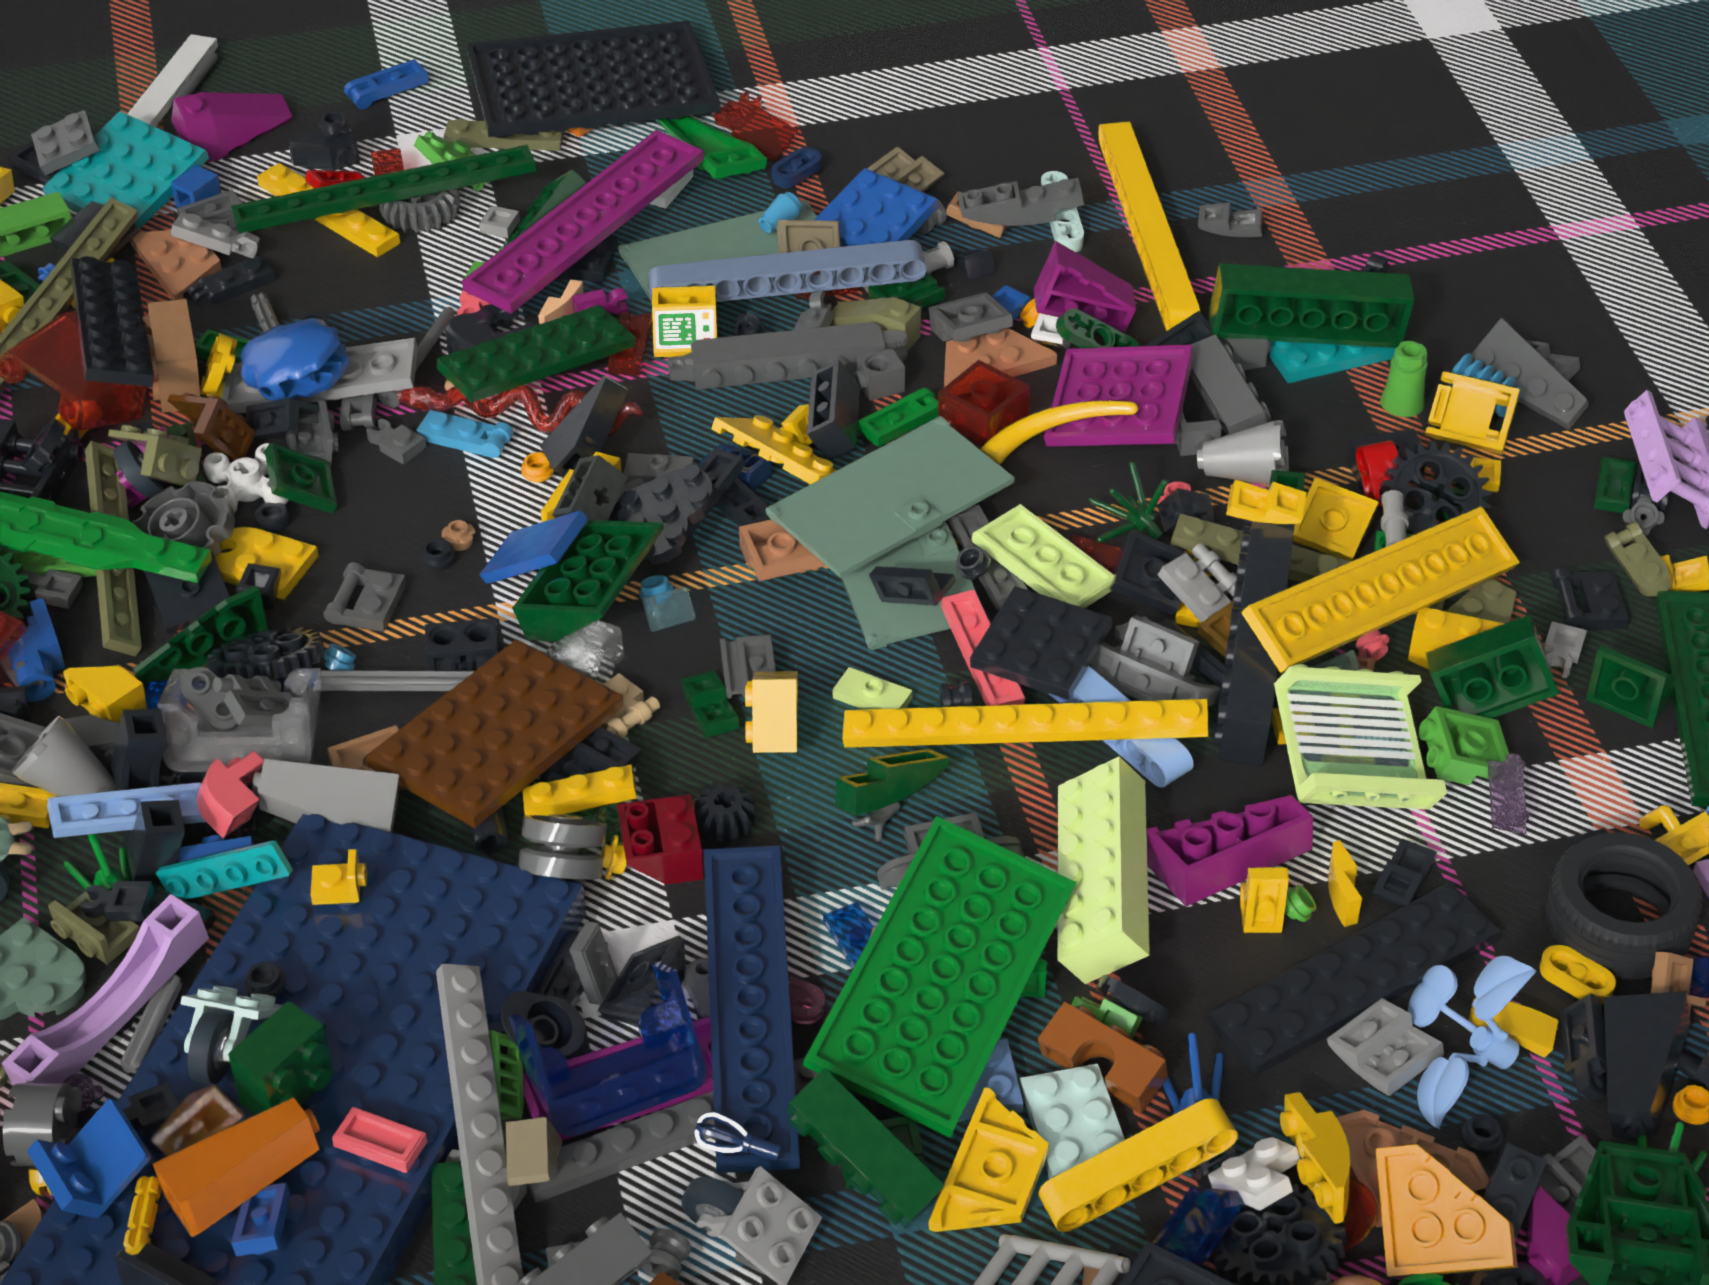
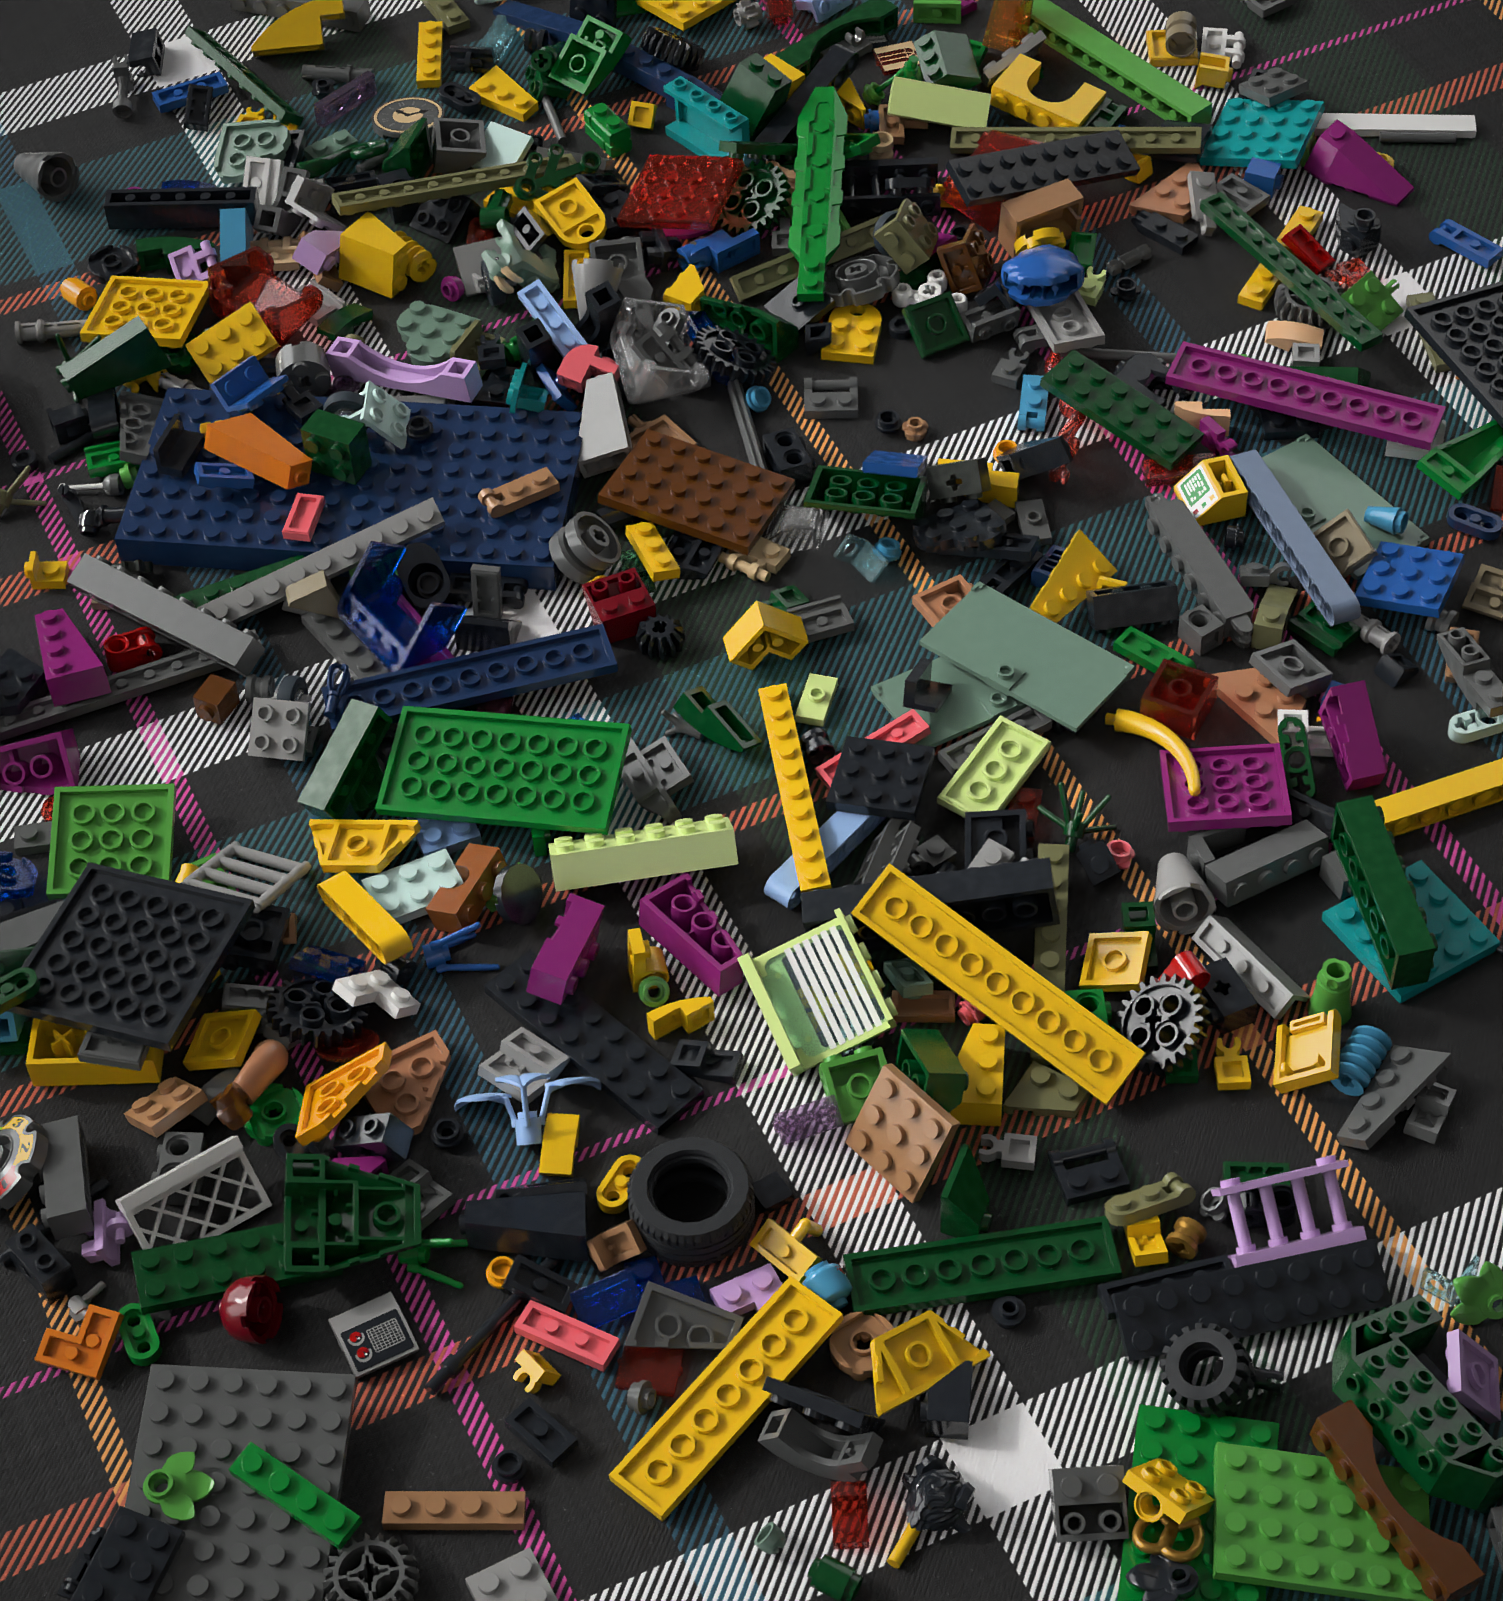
camera: 80 degrees right, 5 degrees up
(196, 1119) = (288, 424): clear orange slope -> none
(338, 881) = (514, 440): yellow bracket -> none
(441, 890) = (519, 492): none -> medium nougat plate
(460, 224) = (1285, 333): none -> light nougat slope
(973, 562) = (970, 724): black plate -> none
(1247, 958) = (568, 951): none -> magenta wedge
(1274, 506) = (1030, 862): yellow slope -> none
(1323, 1153) = (378, 1023): yellow slope -> none
(1334, 441) = (1262, 977): none -> light grey panel
(1394, 520) = (1105, 992): light grey pin -> none
(1559, 706) = (902, 1132): none -> medium nougat plate
(1685, 543) = (1186, 1237): none -> pearl gold wheel

